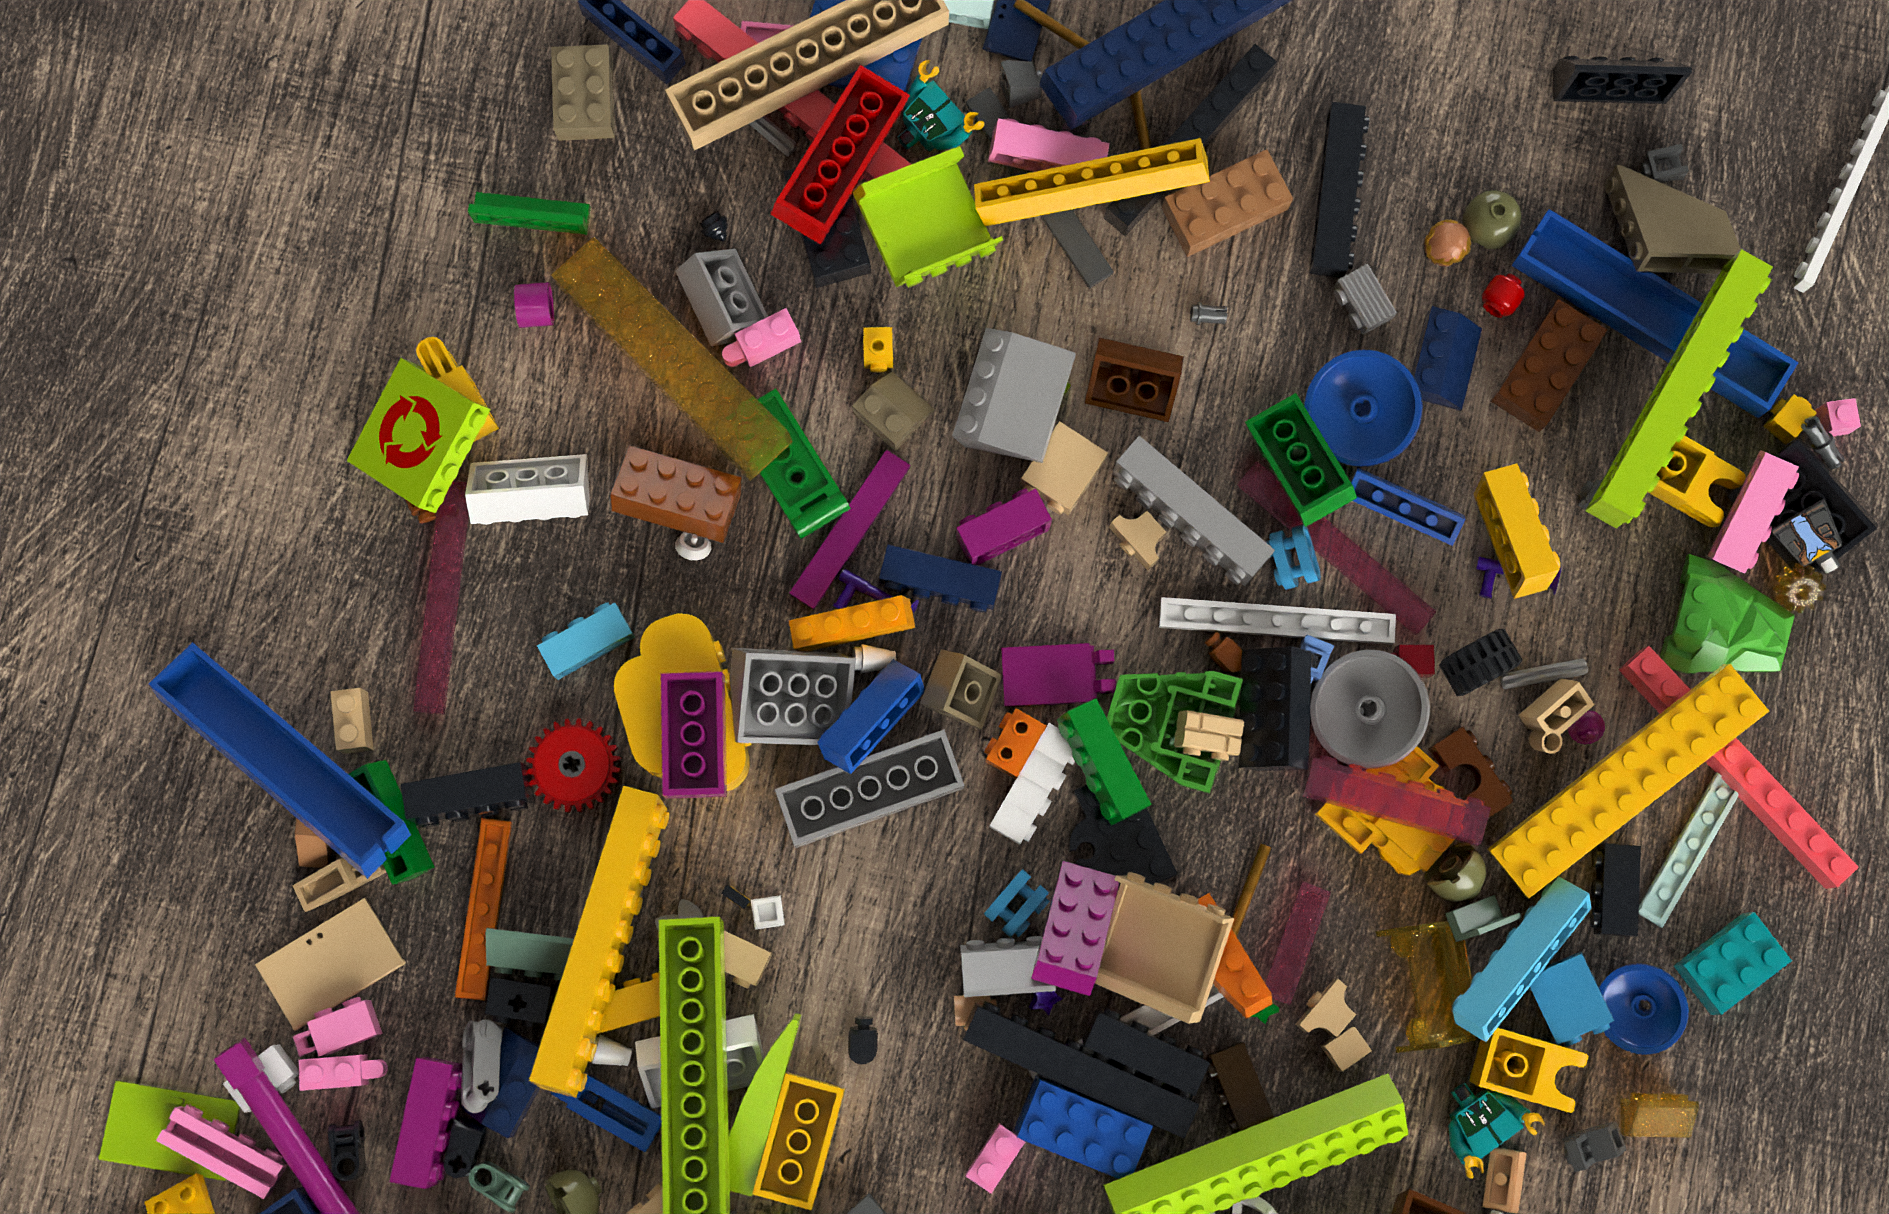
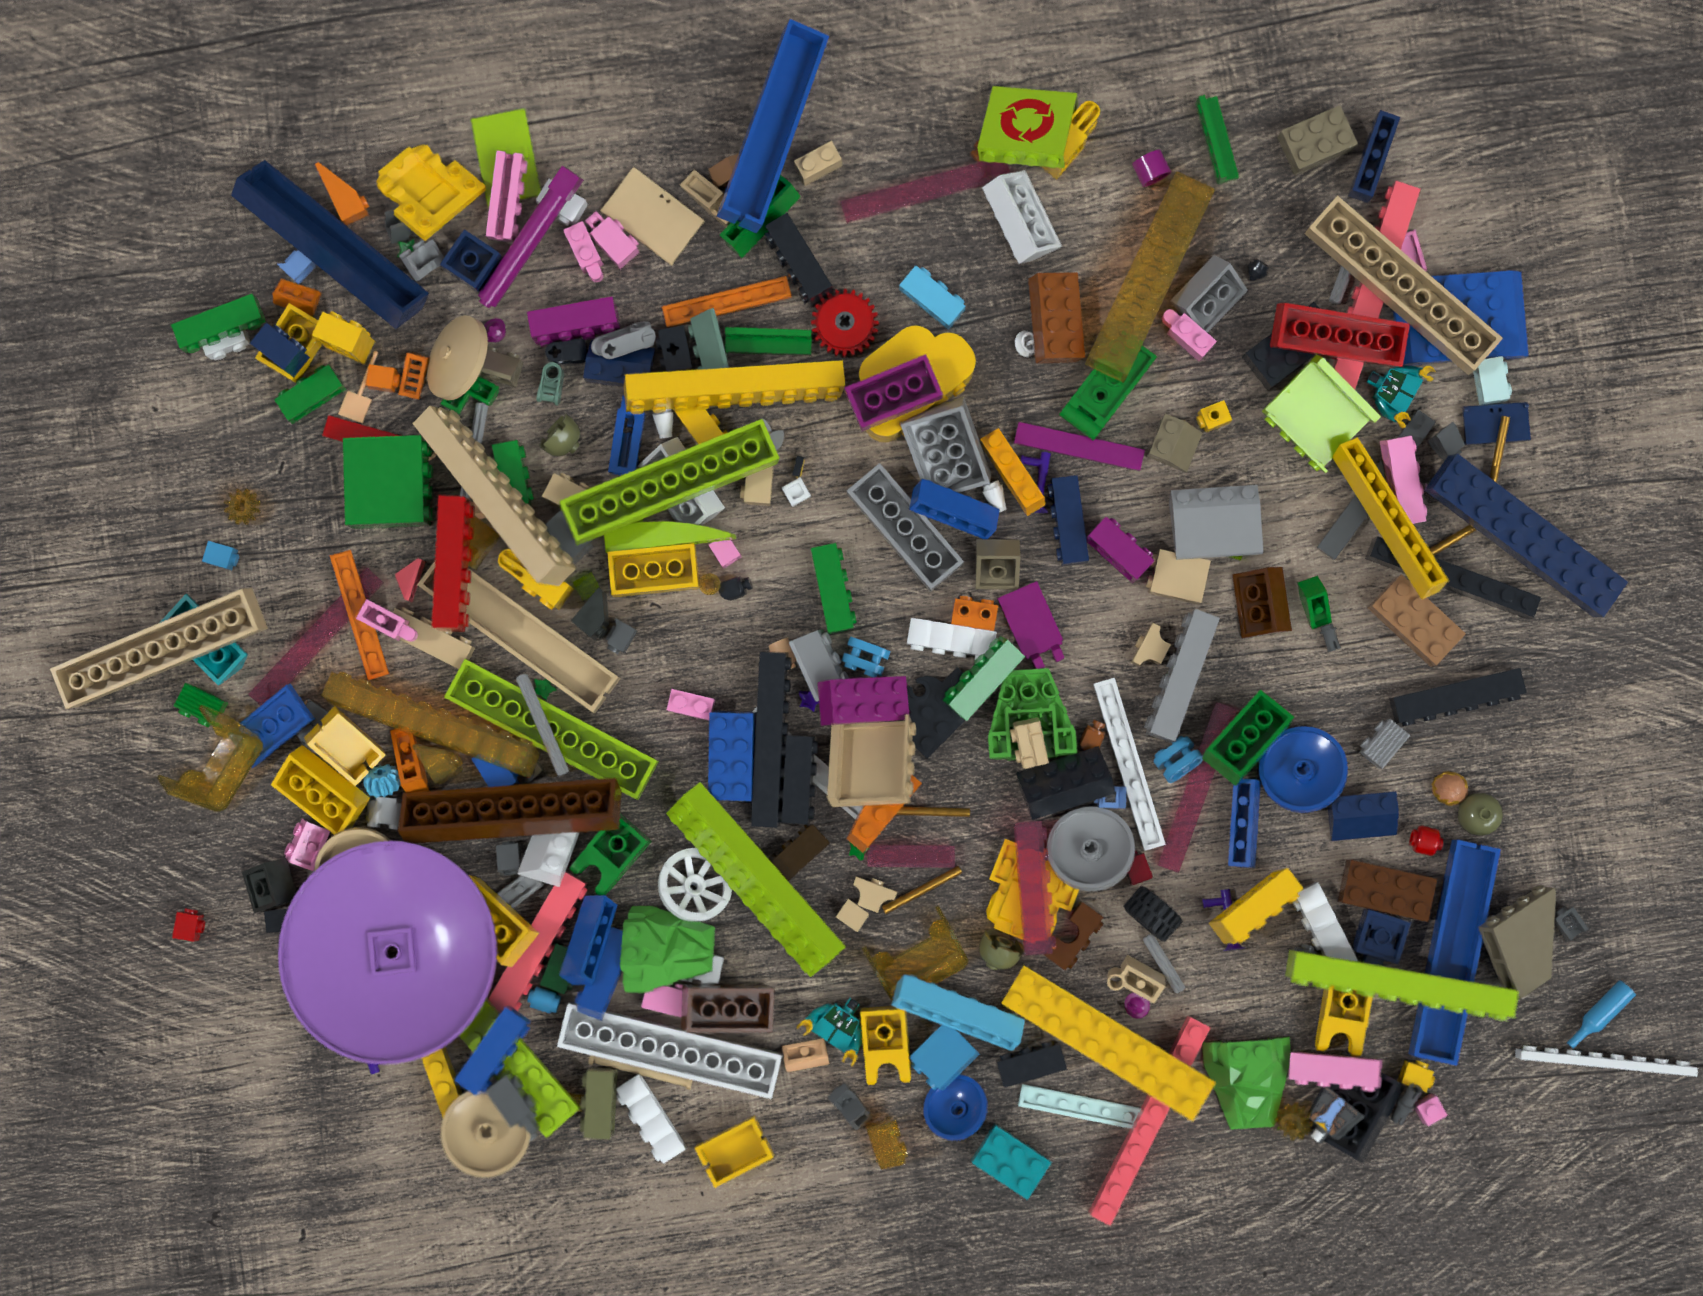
camera: 75 degrees right, 5 degrees up
(347, 1147) = (538, 277): black piece -> none
(557, 874) = (768, 341): none -> green fence
(811, 1036) = (725, 552): none -> bright pink brick
(836, 1070) = (709, 577): none -> clear yellow bush
(912, 913) = (832, 588): none -> green brick
(1157, 315) = (1315, 602): none -> green slope
(1343, 945) = (922, 889): none -> pearl gold bar
(1478, 918) = (974, 973): sand green panel -> none
(1565, 458) = (1322, 923): none -> white brick
(1606, 396) = (1377, 938): none -> dark blue brick
(1617, 80) = (1620, 867): black slope -> none
(1785, 166) = (1603, 1011): none -> dark azure piece

